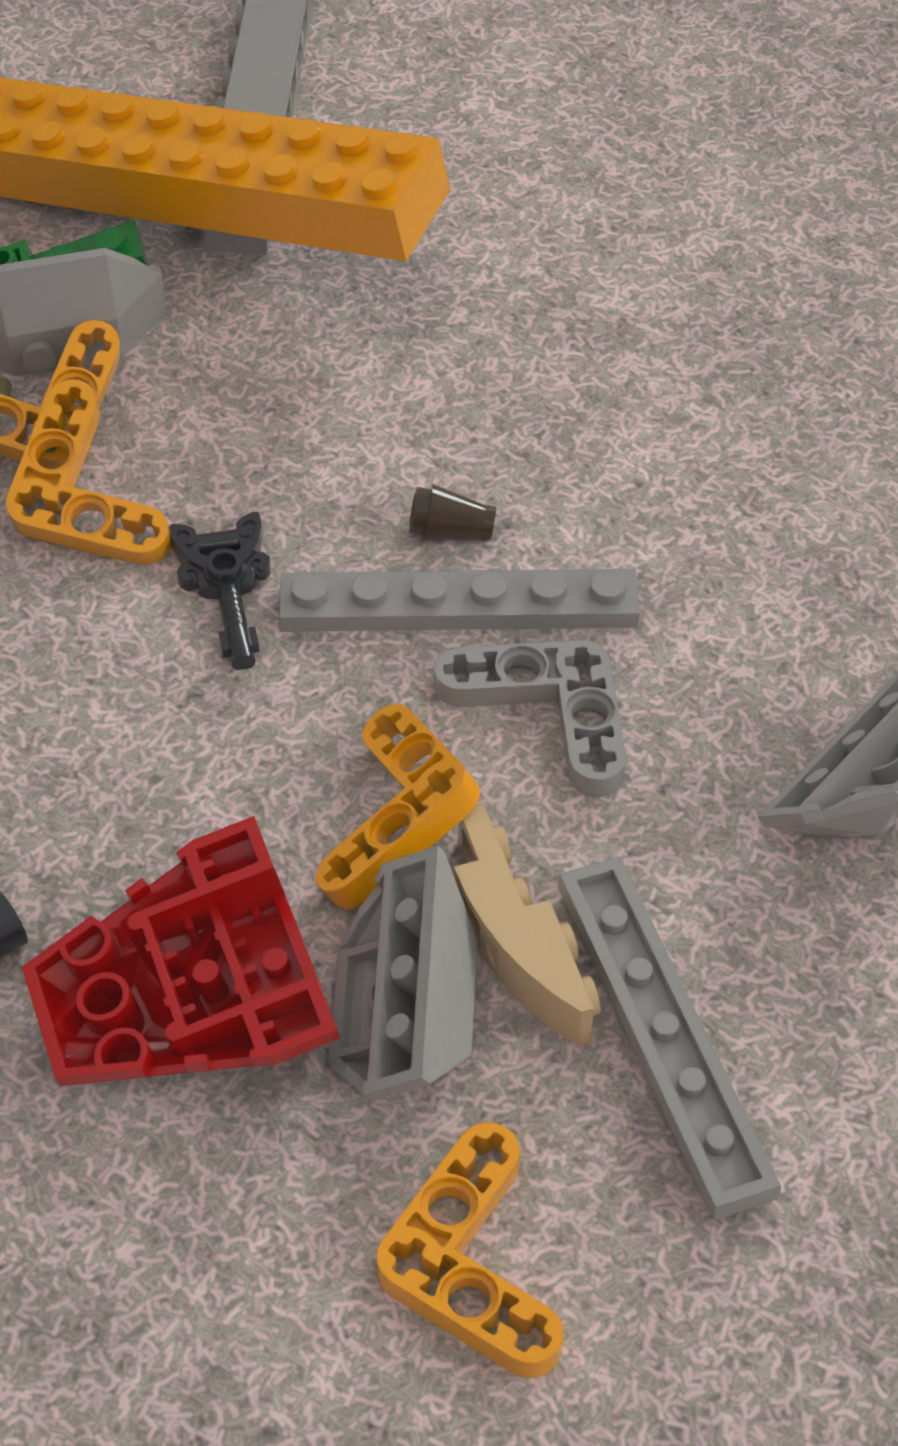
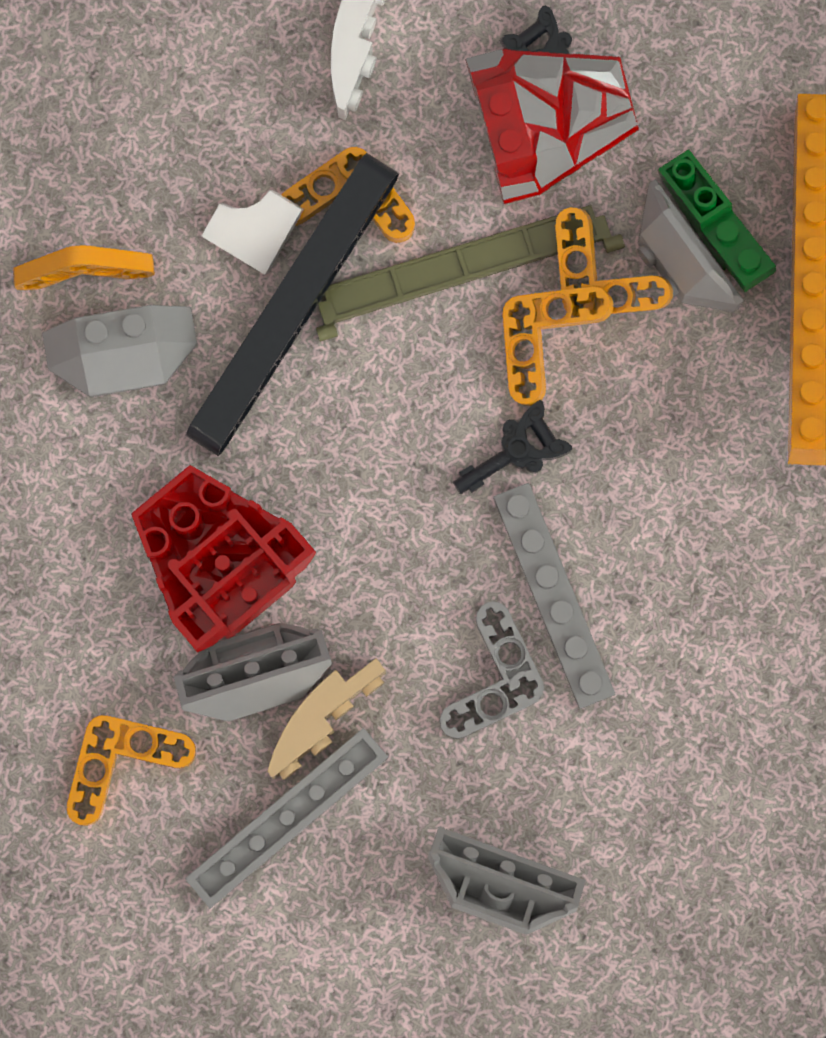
camera: 70 degrees right, 30 degrees up
(438, 786) = (382, 632): light orange beam -> none
(449, 516) = (614, 565): dark brown cone -> none

